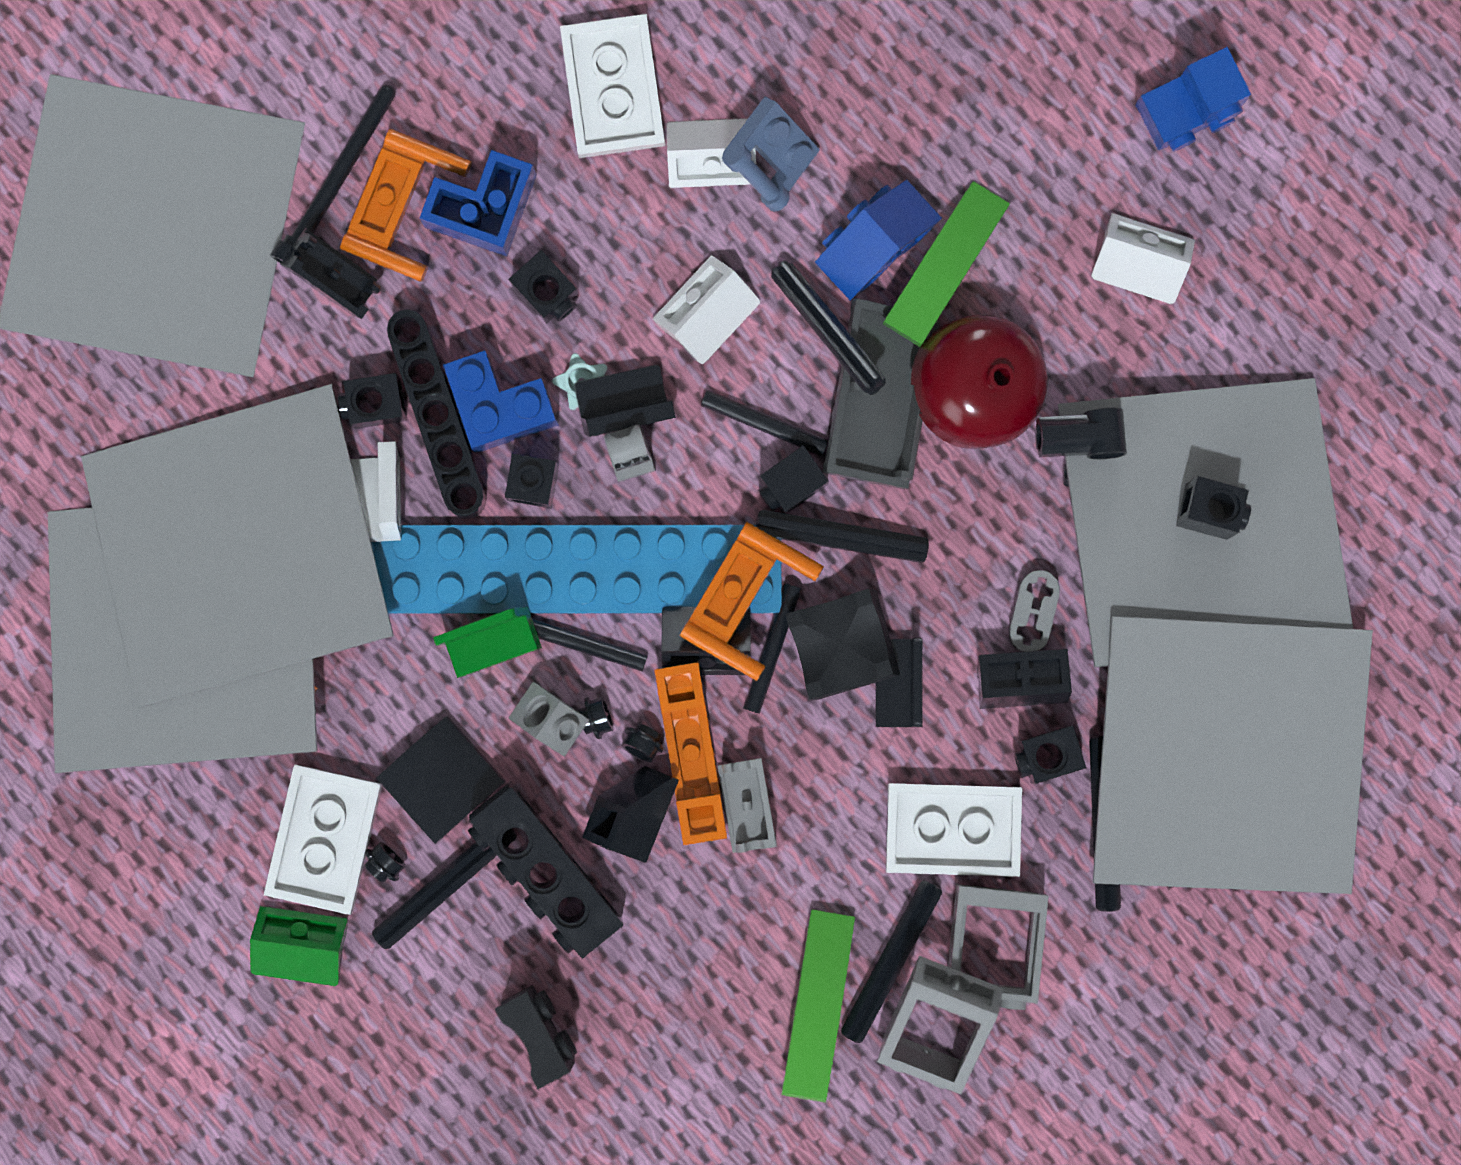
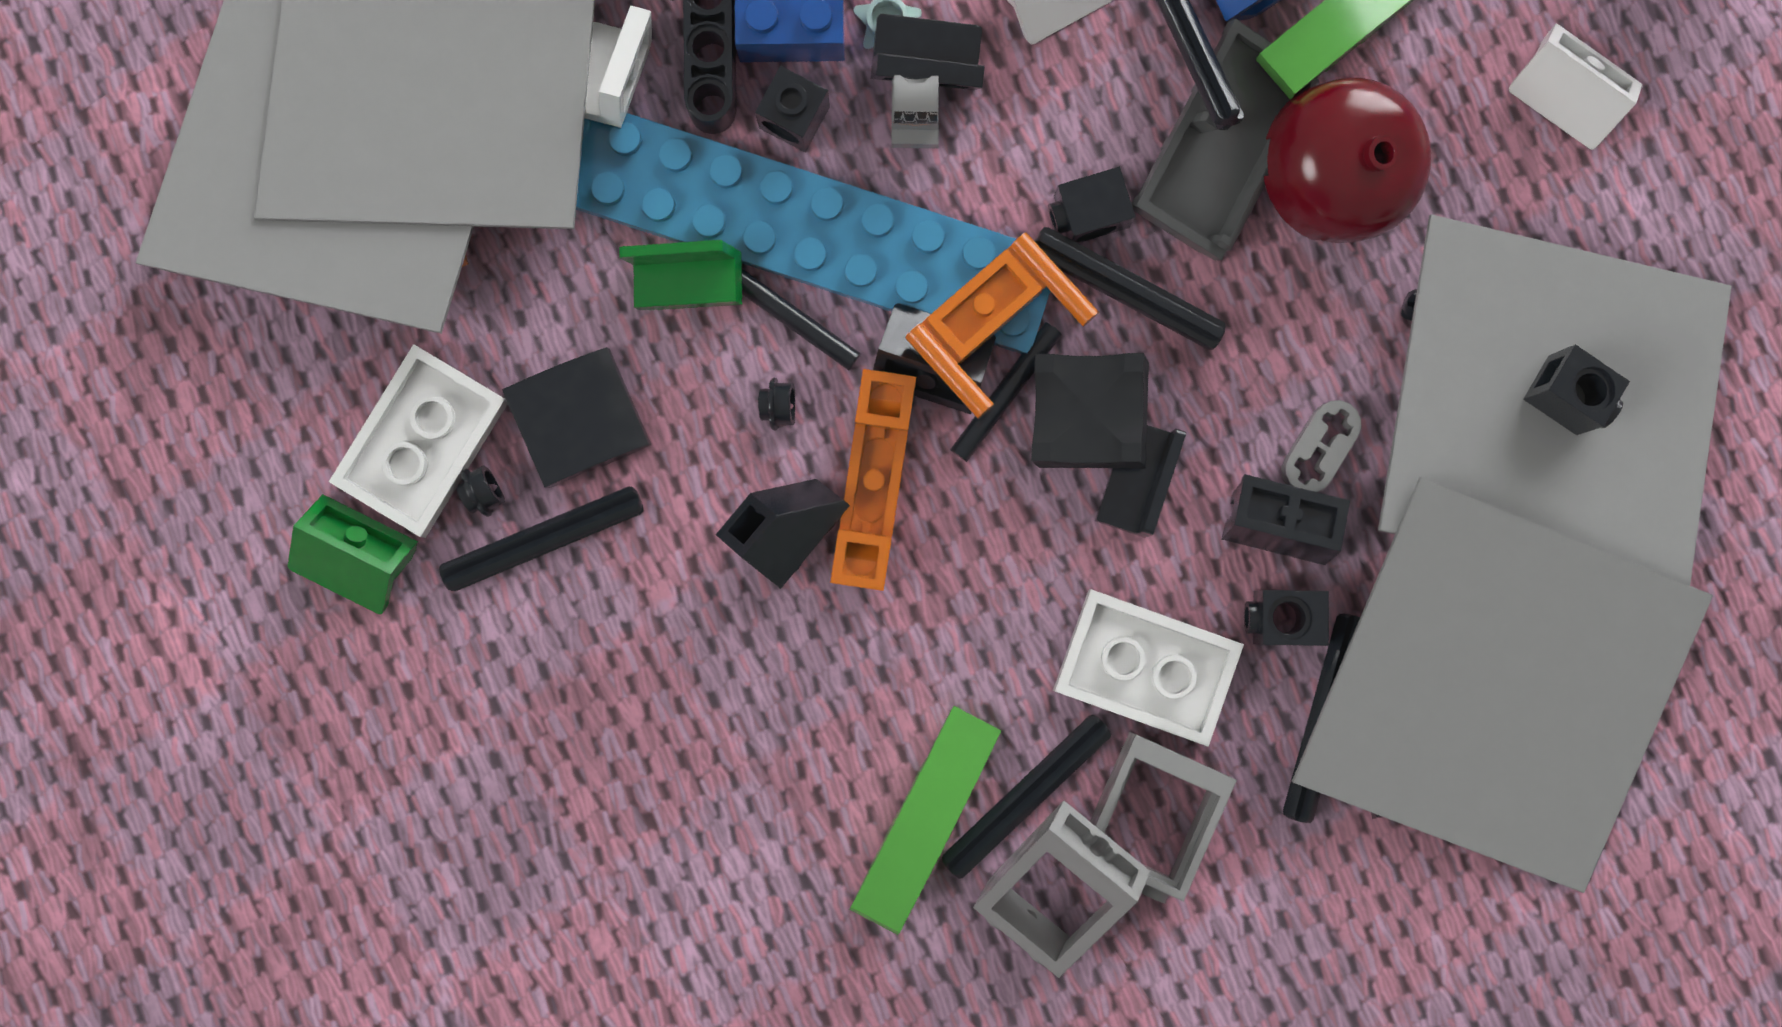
camera: 15 degrees right, 0 degrees up
(511, 810) = (674, 644): black brick -> none
(530, 1018) = (592, 763): black brick -> none
(548, 719) = (722, 386): light grey brick -> none
(642, 742) = (821, 450): black plate -> none
(747, 805) = (918, 561): light grey hinge -> none
(764, 422) = (1078, 131): black bar -> none
(1095, 434) = (1466, 258): black piece -> none

